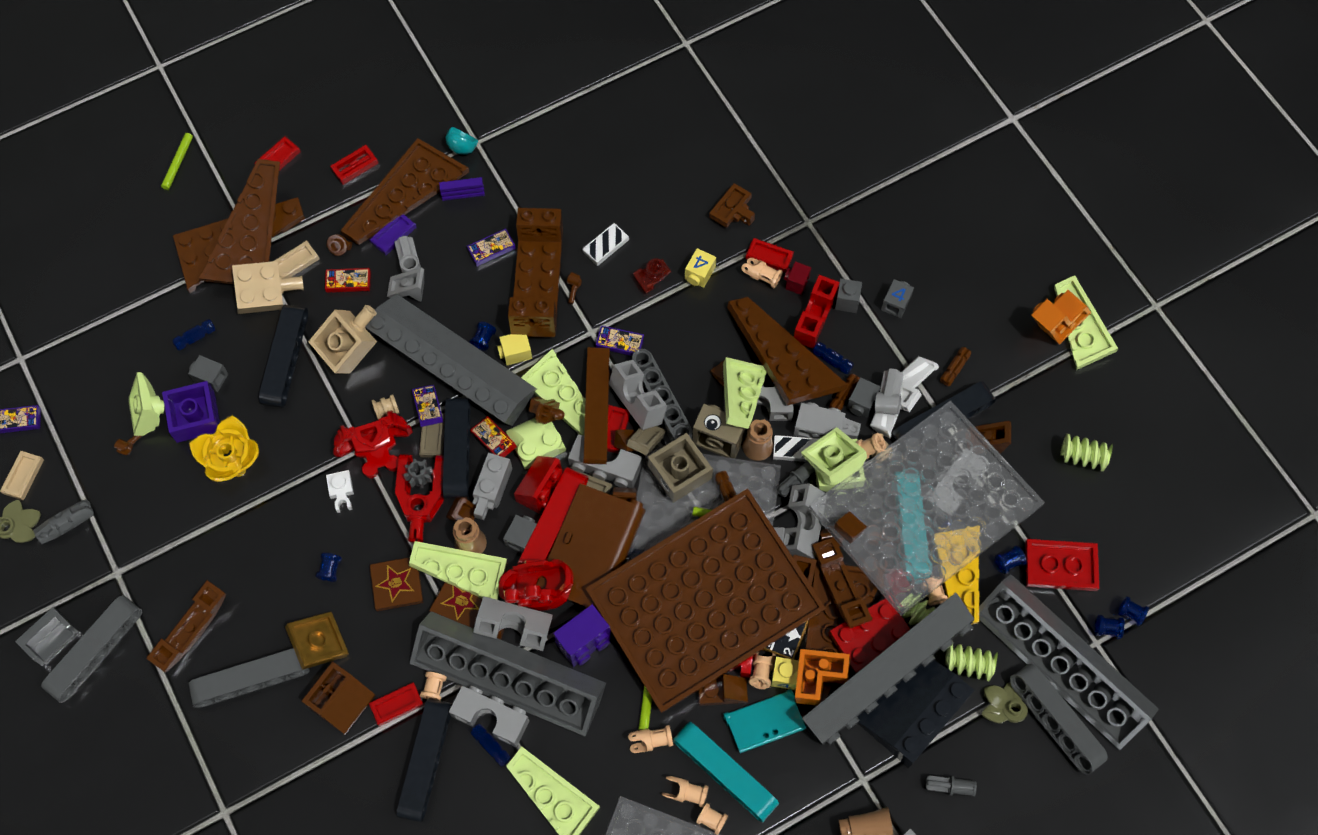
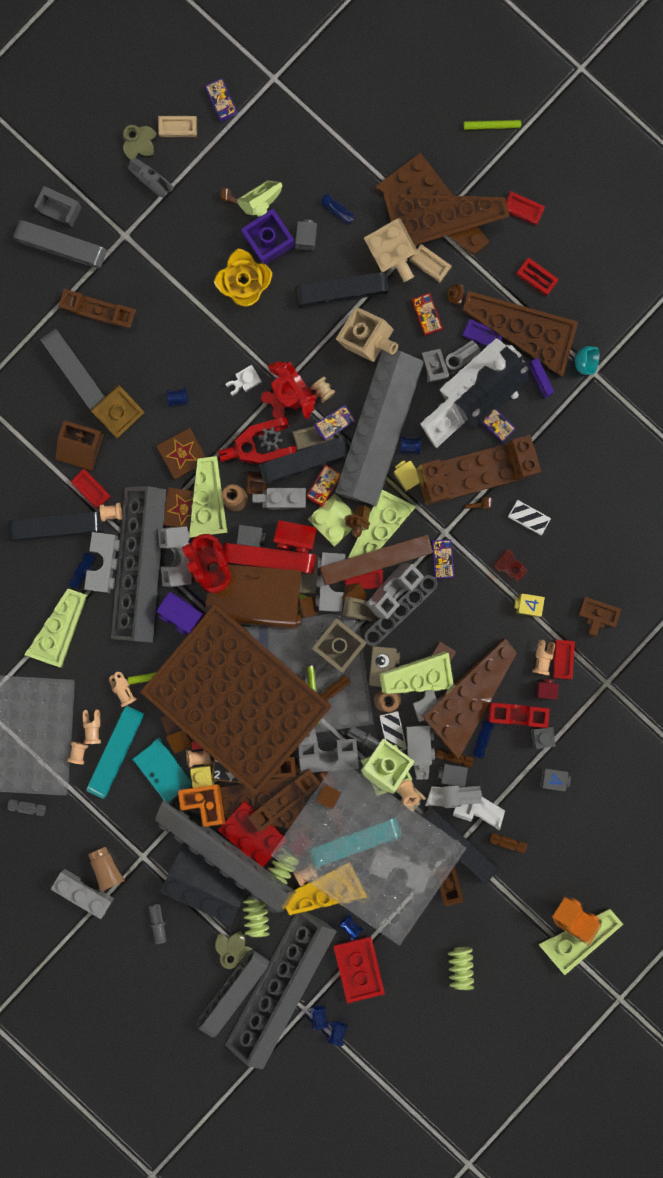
camera: 70 degrees right, 20 degrees up
(450, 245) = (477, 391): none -> piece

